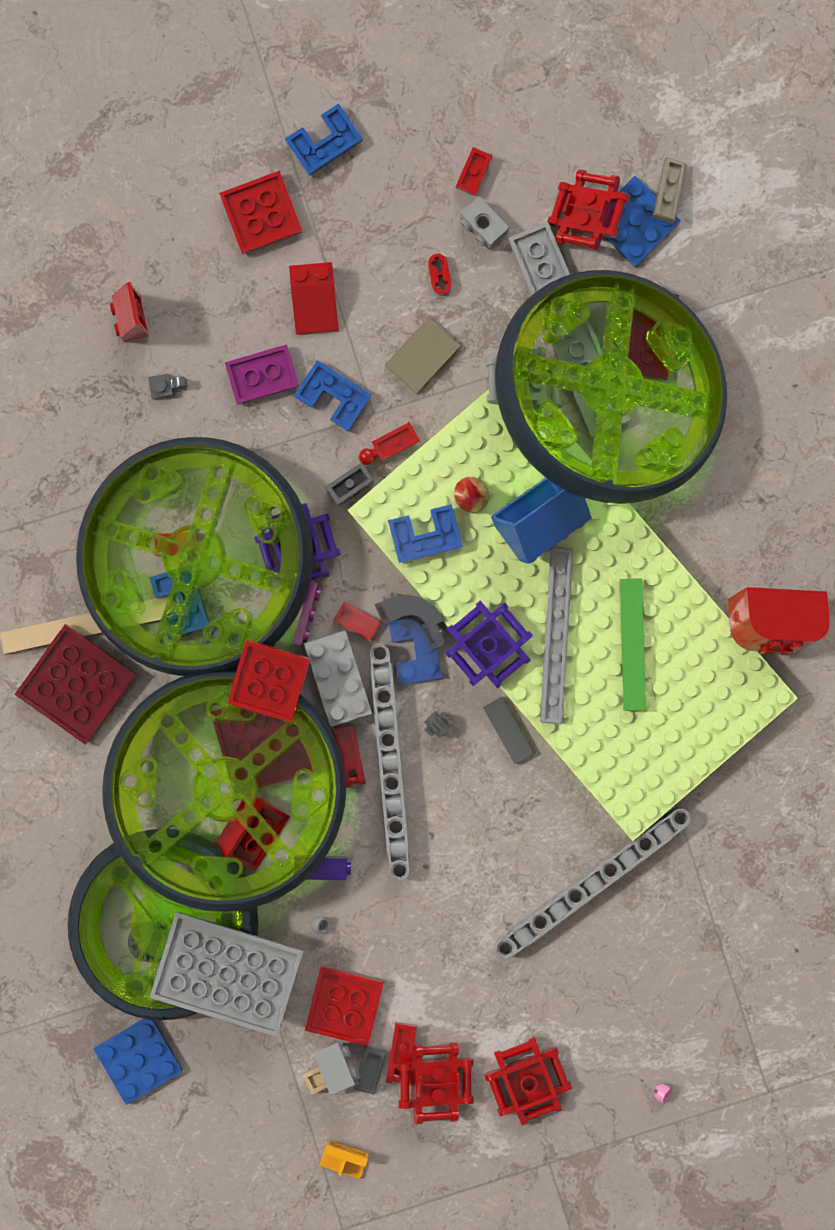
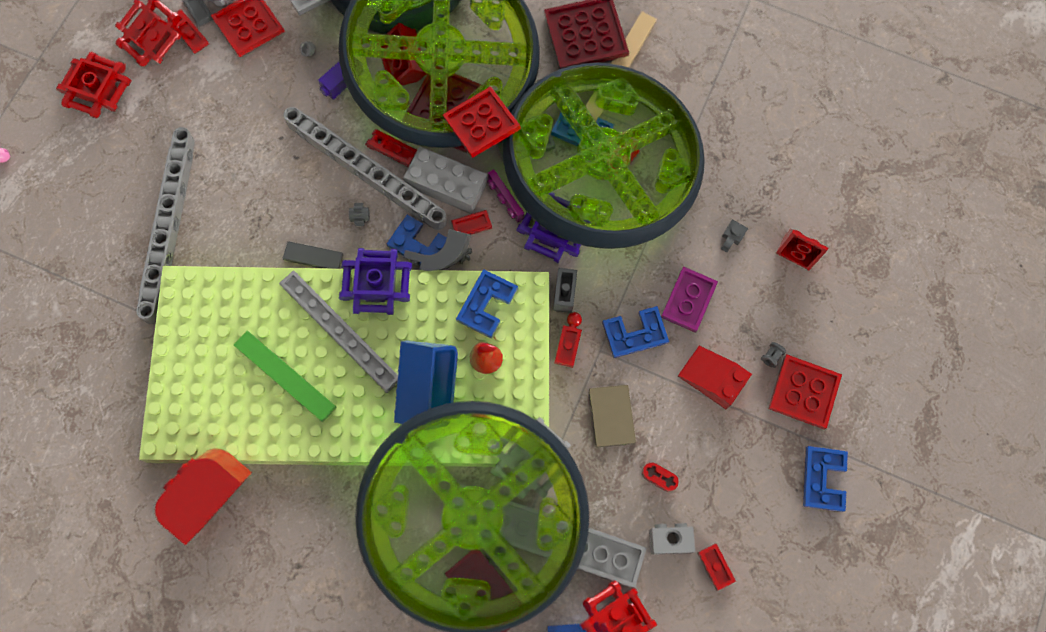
camera: 130 degrees right, 15 degrees down
(251, 259) = (773, 354): none -> dark grey bush

